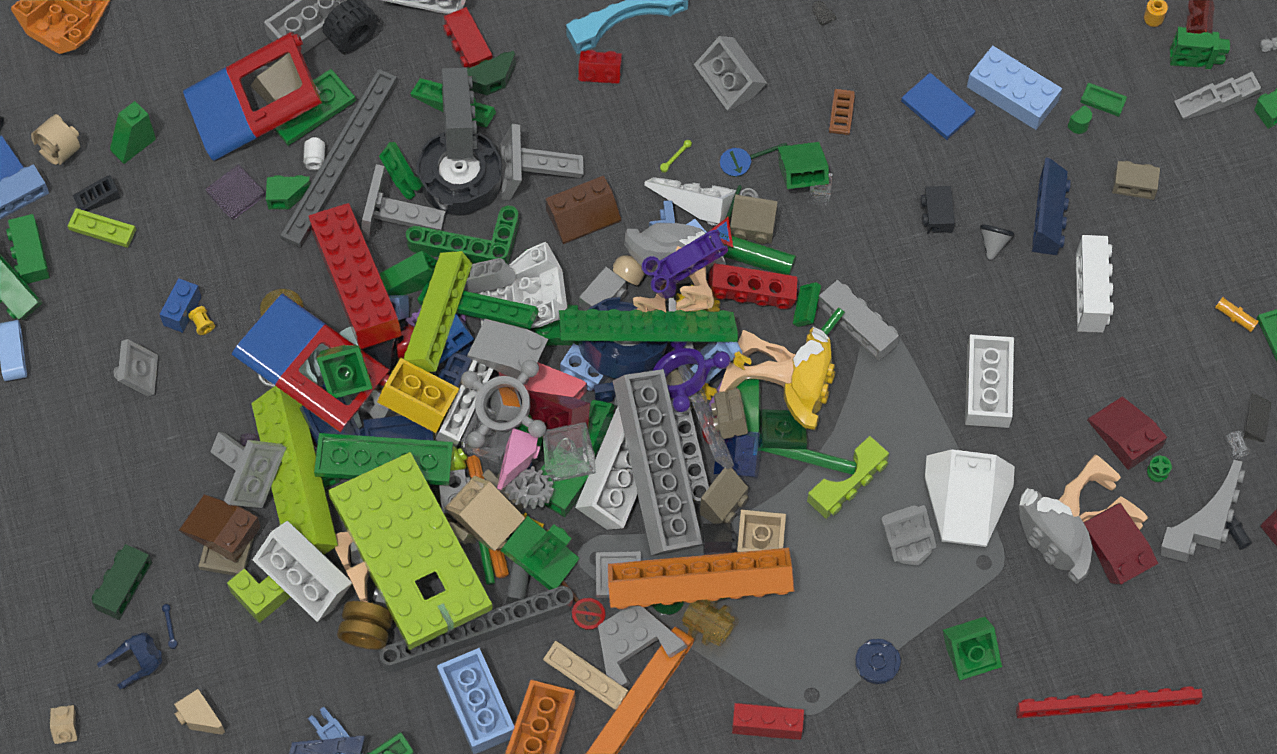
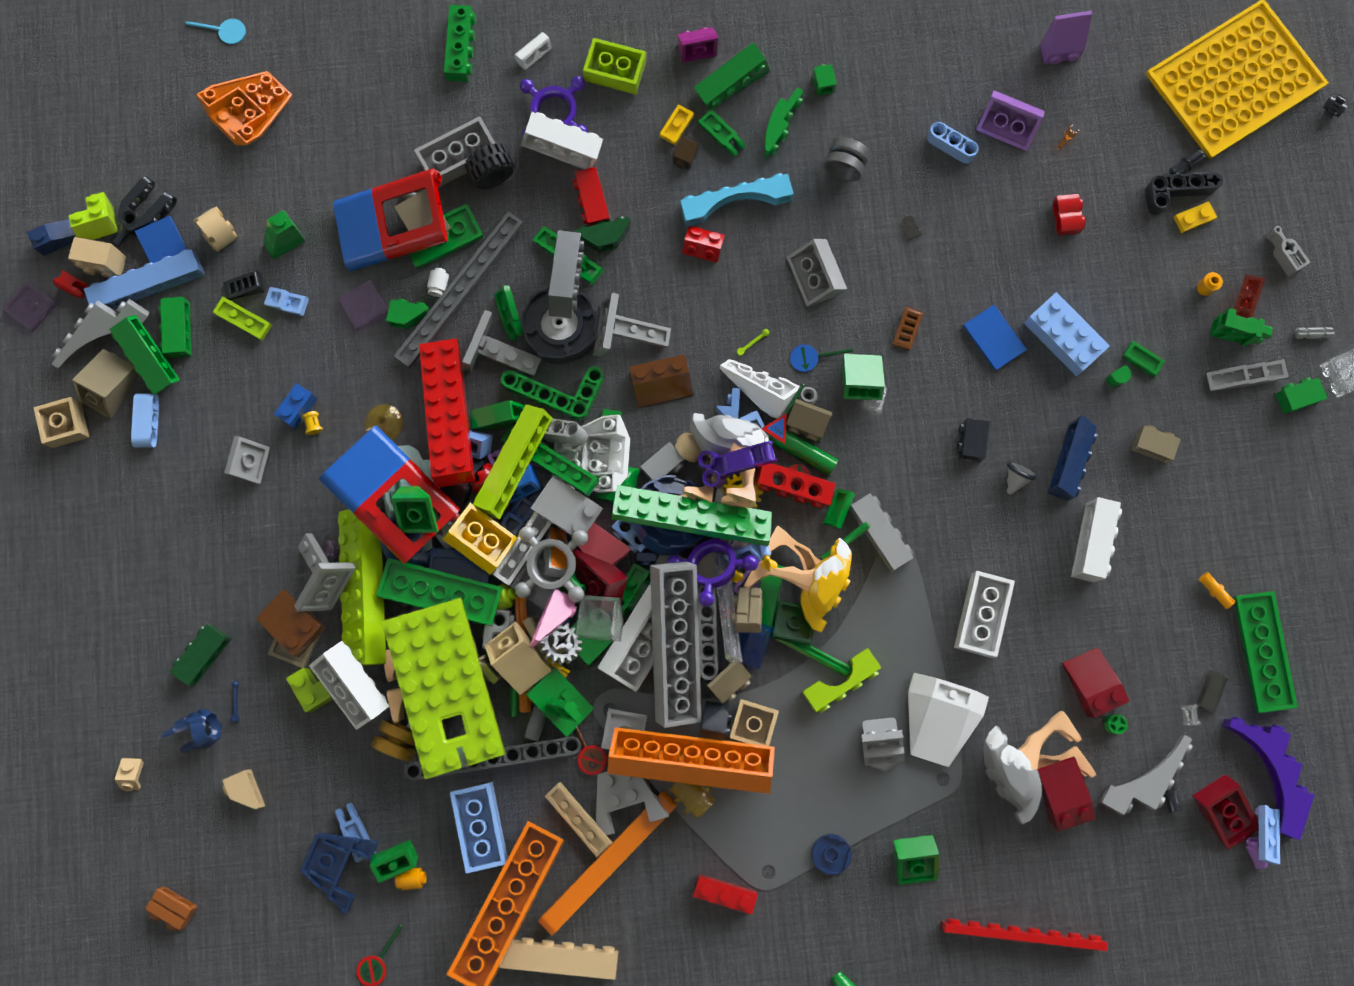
camera: 10 degrees right, 15 degrees up
(149, 204) = (286, 301): none -> light blue slope

